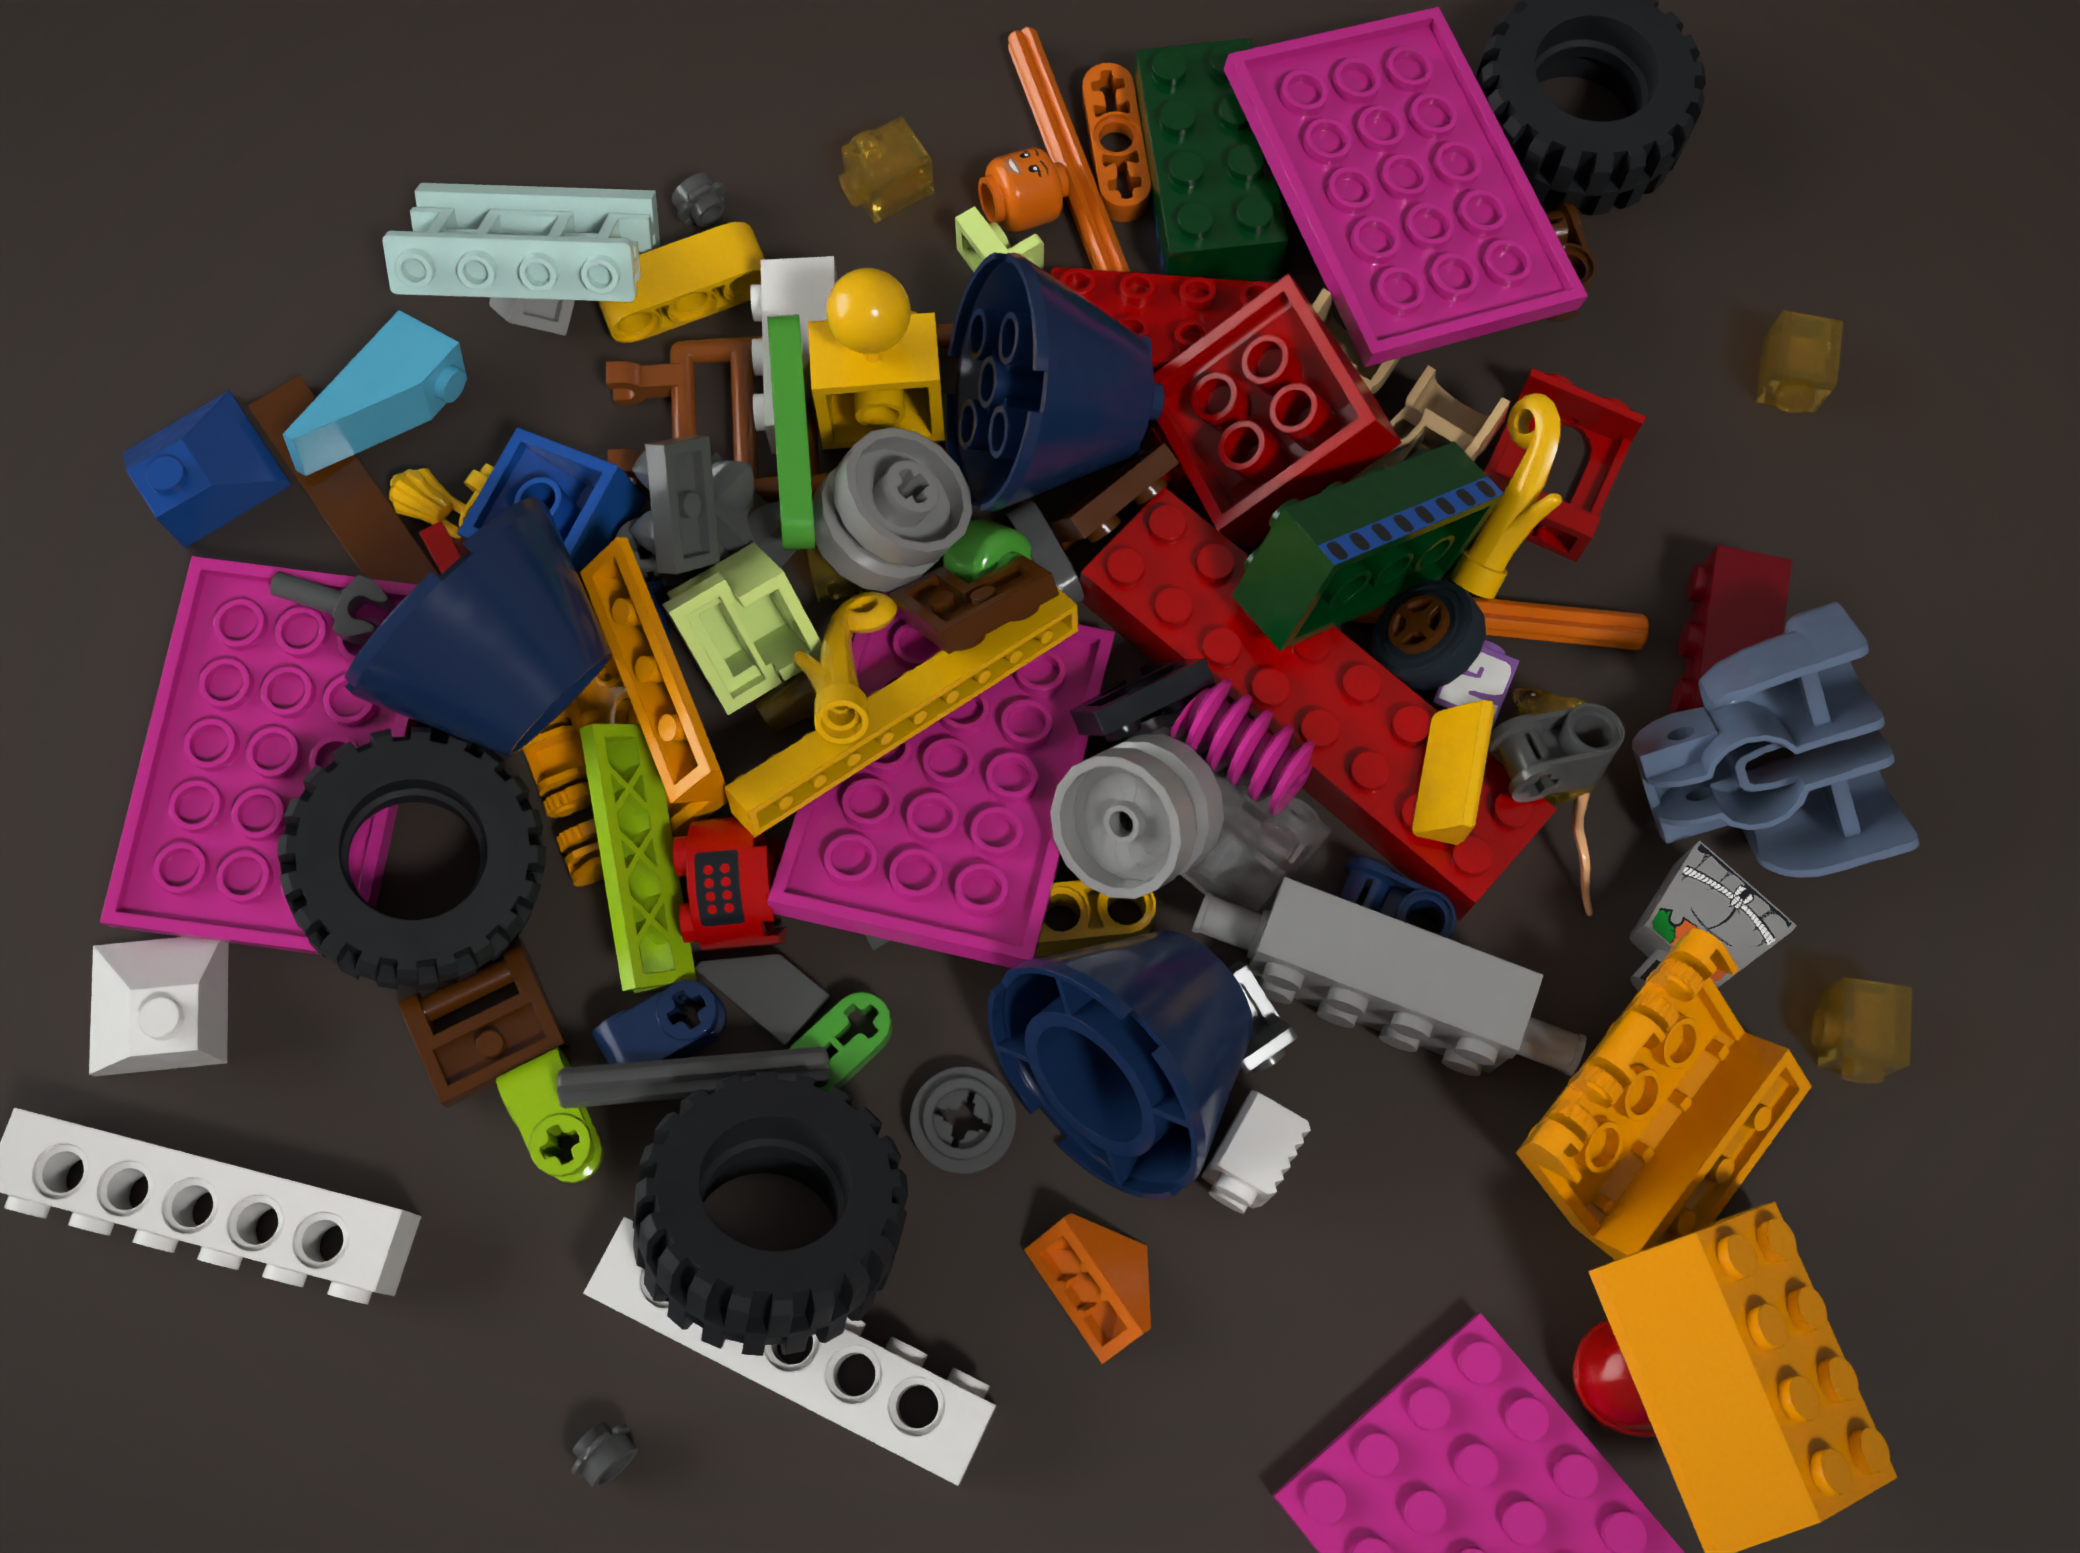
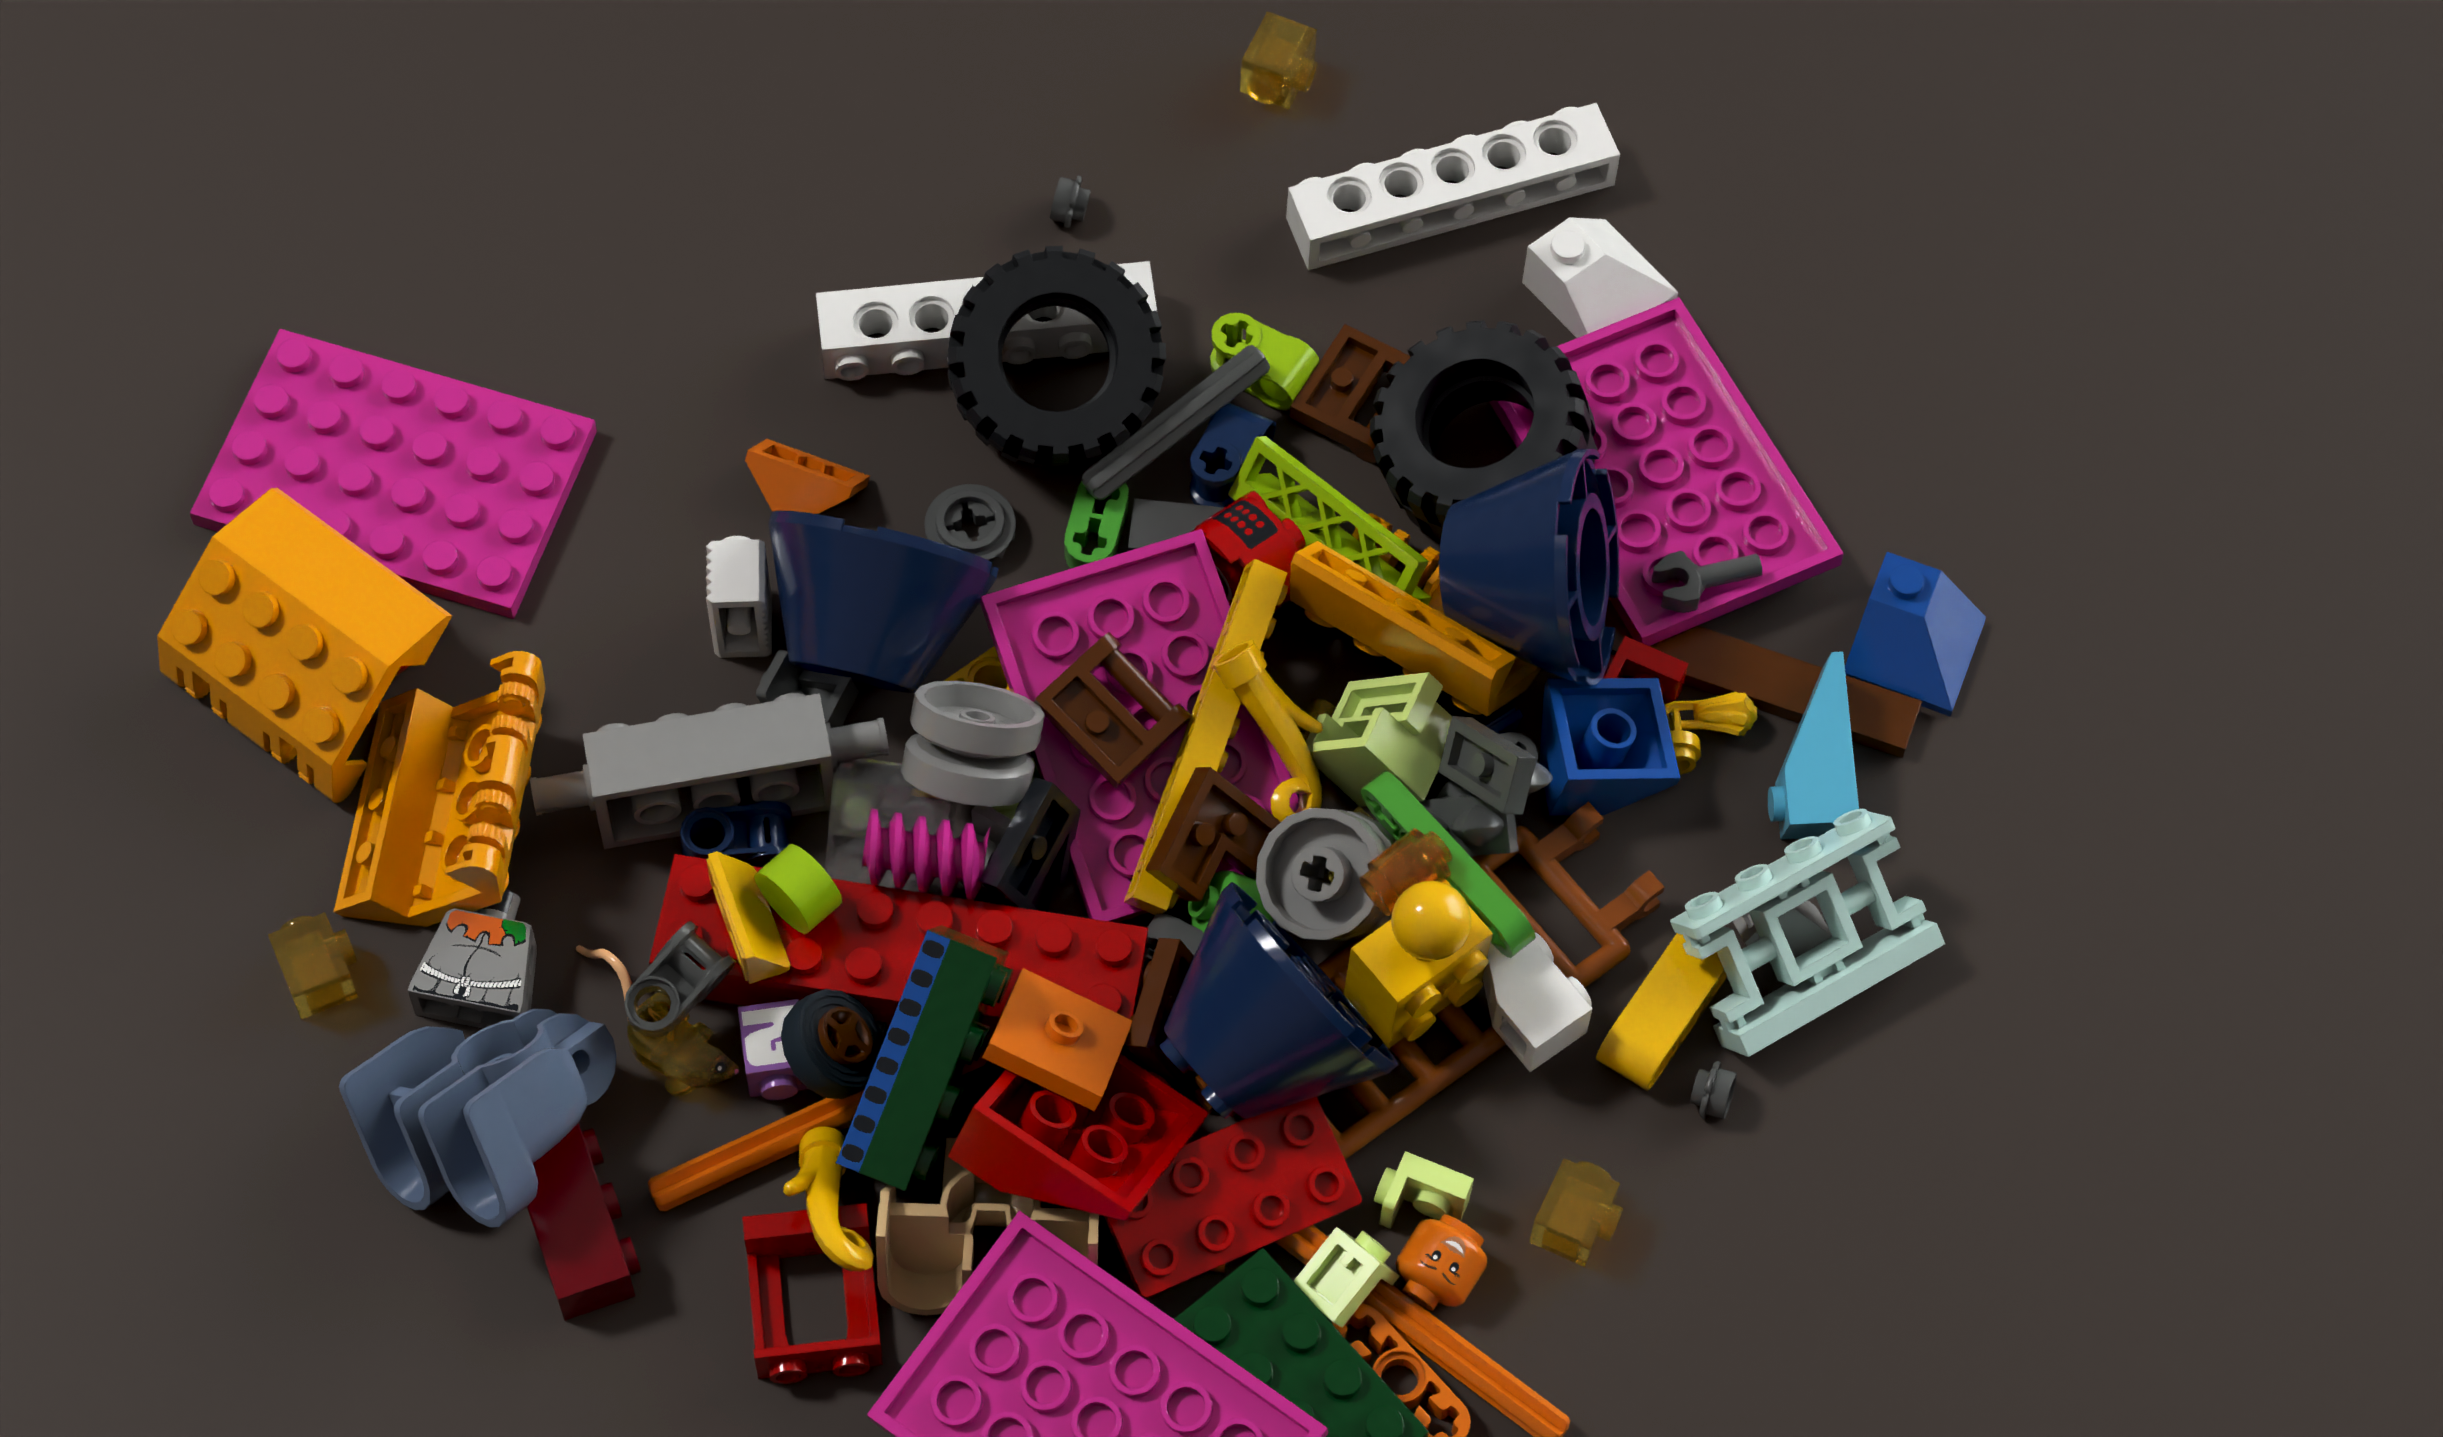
camera: 145 degrees right, 10 degrees down
(253, 1488) = (1279, 61): none -> clear yellow brick
(841, 411) = (1403, 864): none -> clear orange brick
(1002, 772) = (1099, 722): none -> reddish brown plate
(1110, 212) = (1344, 1274): none -> yellowish green bracket
(1240, 477) = (1058, 1039): none -> orange plate
(1396, 758) = (798, 888): none -> lime piece

